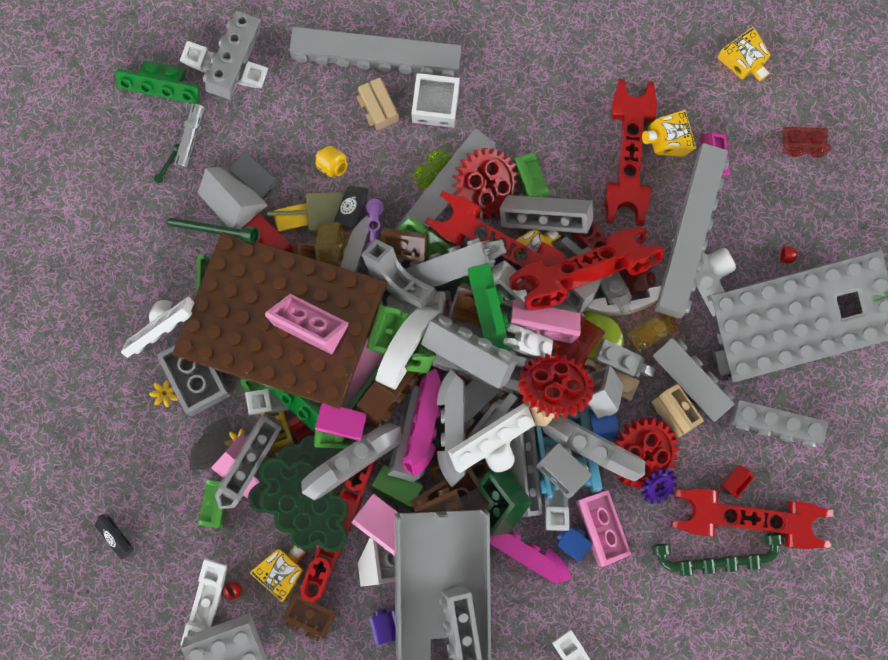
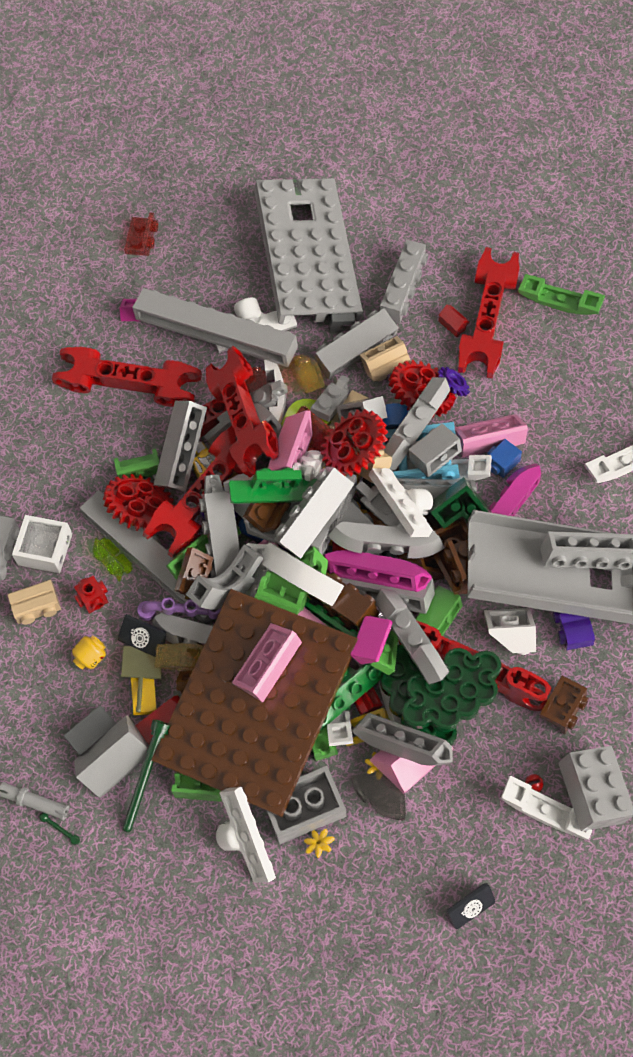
camera: 80 degrees left, 15 degrees down
(210, 512) = (442, 795): bright green hinge -> none
(280, 572) = (517, 730): torso -> none
(377, 522) = (474, 621): bright pink slope -> none
(388, 160) = (91, 594): none -> red brick
(670, 135) = (117, 339): yellow torso -> none
(730, 563) = (530, 369): dark green bar -> none
(746, 55) = (49, 271): yellow torso -> none
(779, 597) = (560, 299): none -> bright green slope
(788, 254) = (247, 259): red hinge -> none

